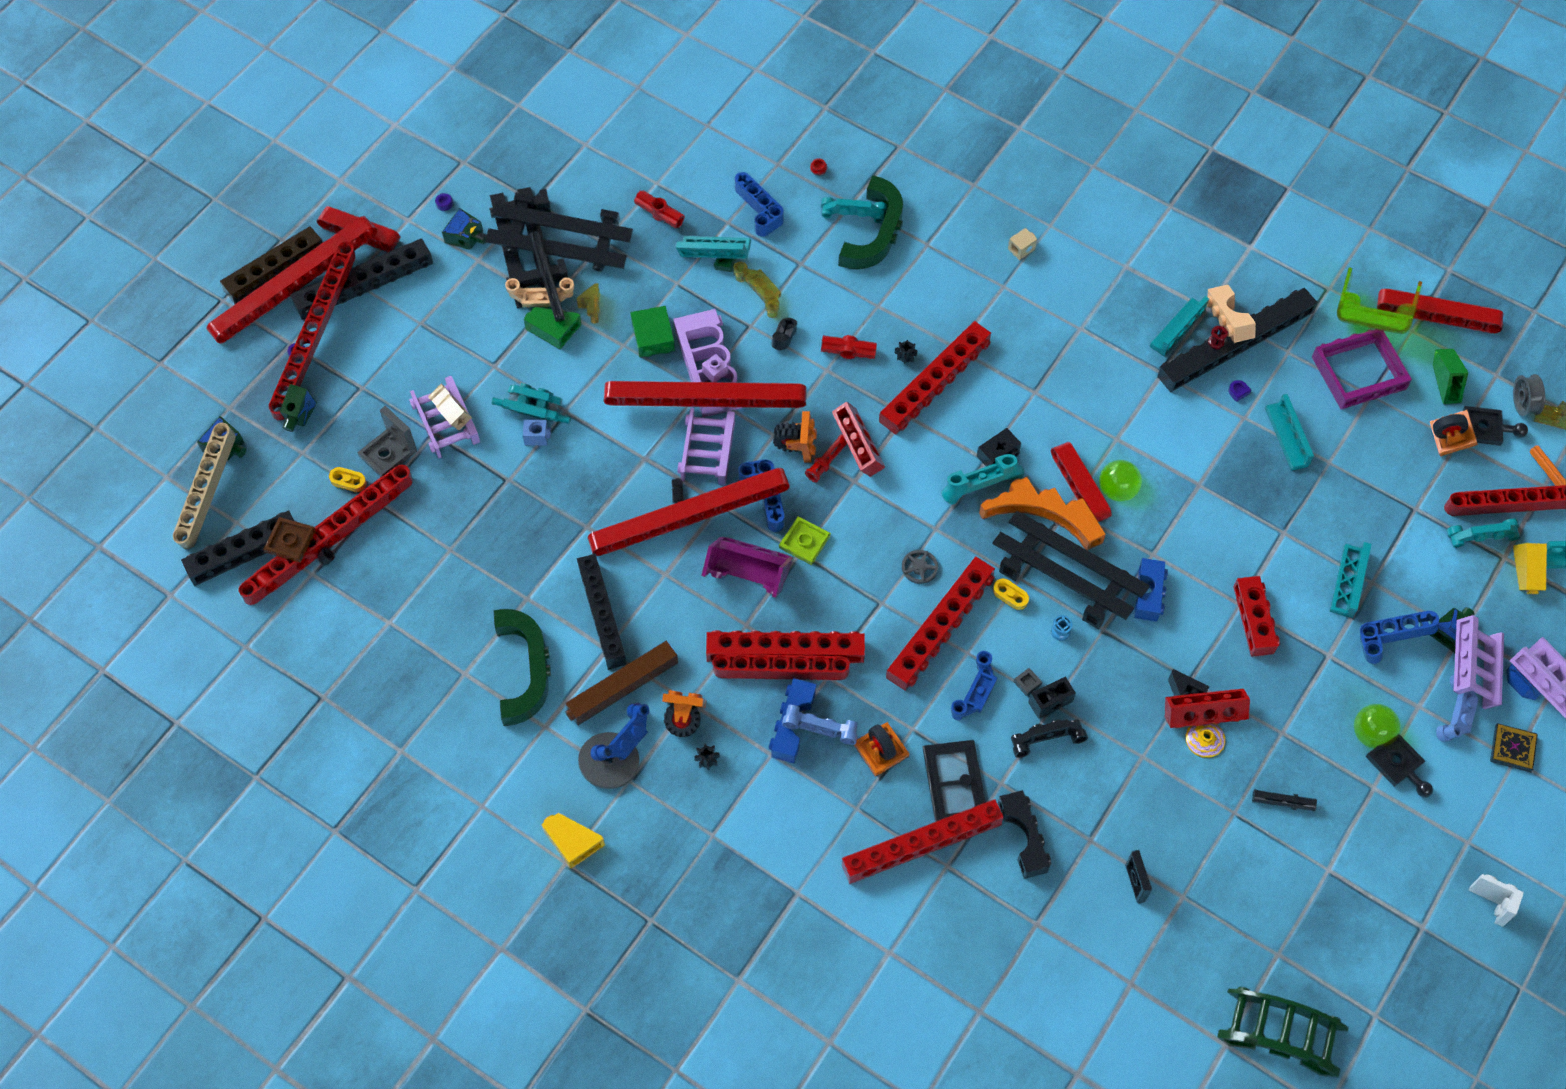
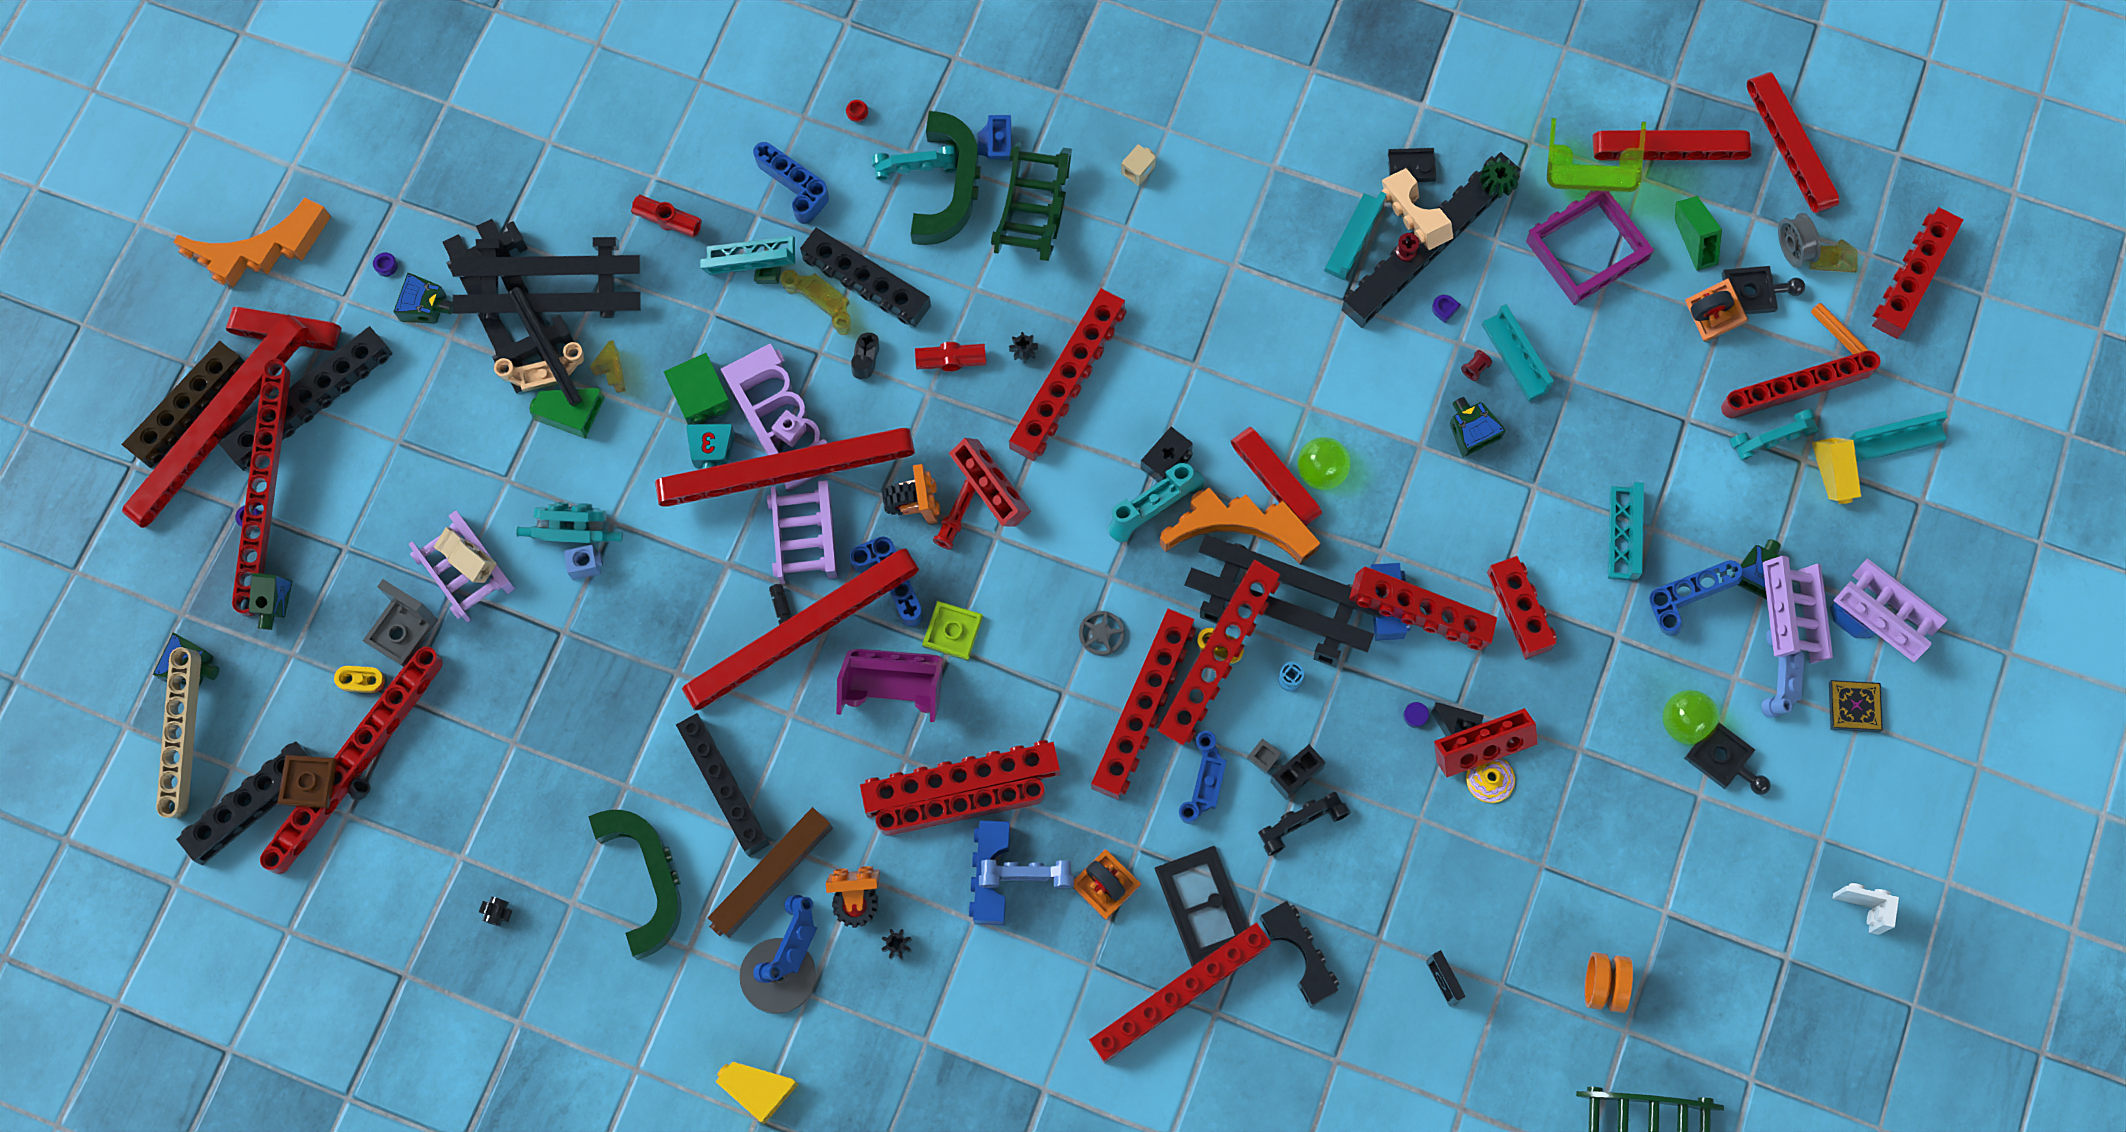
camera: 10 degrees left, 10 degrees up
(356, 175) = (290, 238): none -> orange arch
(405, 664) = (495, 911): none -> black gear
(653, 368) = (710, 444): none -> teal torso
(789, 270) = (821, 243): none -> black brick
(919, 204) = (996, 138): none -> blue slope
(950, 263) = (1052, 211): none -> dark green fence
(1051, 543) = (1256, 574): none -> red brick
(1155, 678) = (1416, 714): none -> dark purple tile
(1189, 603) = (1480, 624): none -> red brick
(1238, 283) = (1417, 161): none -> black plate
(1244, 478) = (1474, 427): none -> torso
(1255, 435) = (1476, 365): none -> dark red bush
(1273, 909) = (1608, 982): none -> orange wheel
(1294, 801) = (1599, 837): black pin -> none
(1299, 303) = (1502, 170): none -> dark green gear
(1536, 328) = (1792, 142): none -> red beam

